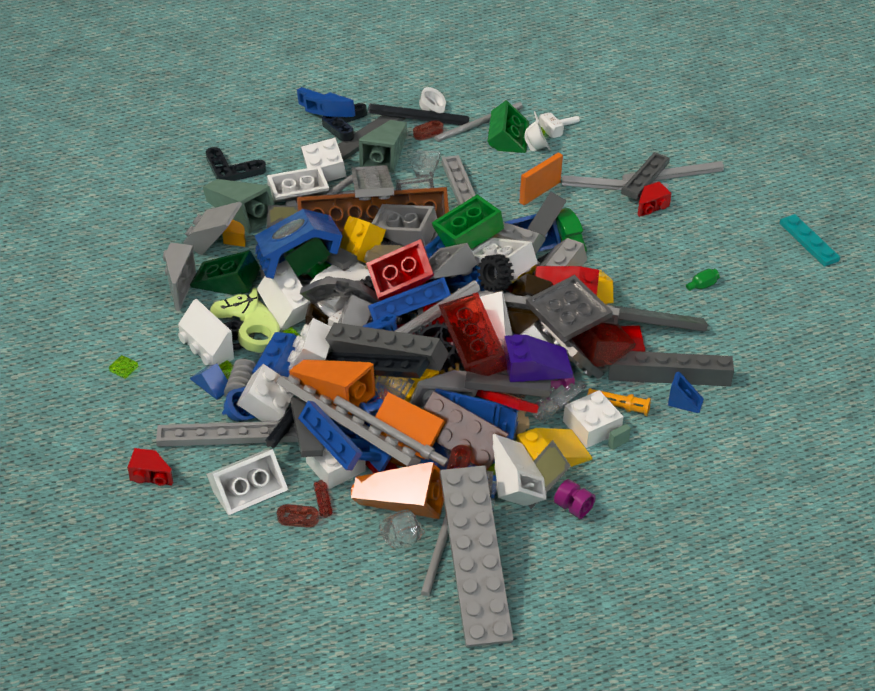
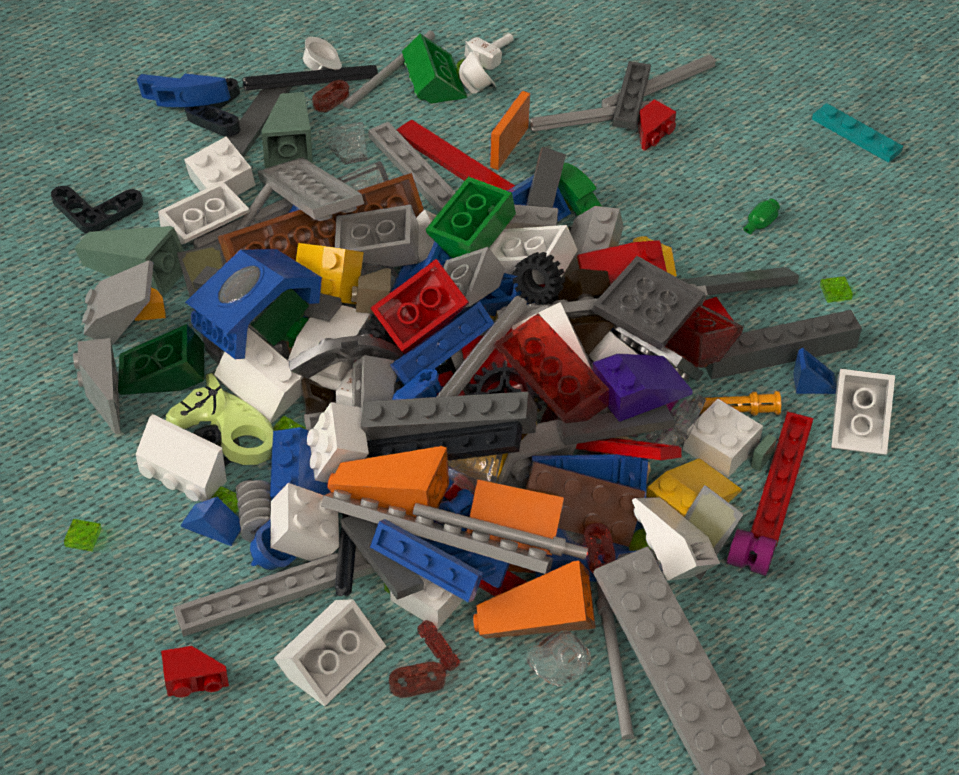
camera: 20 degrees left, 5 degrees up
(493, 189) = (449, 156): none -> red tile
(626, 457) = (782, 476): none -> red tile
(709, 428) = (862, 411): none -> white slope
(735, 342) = (836, 289): none -> clear neon green plate

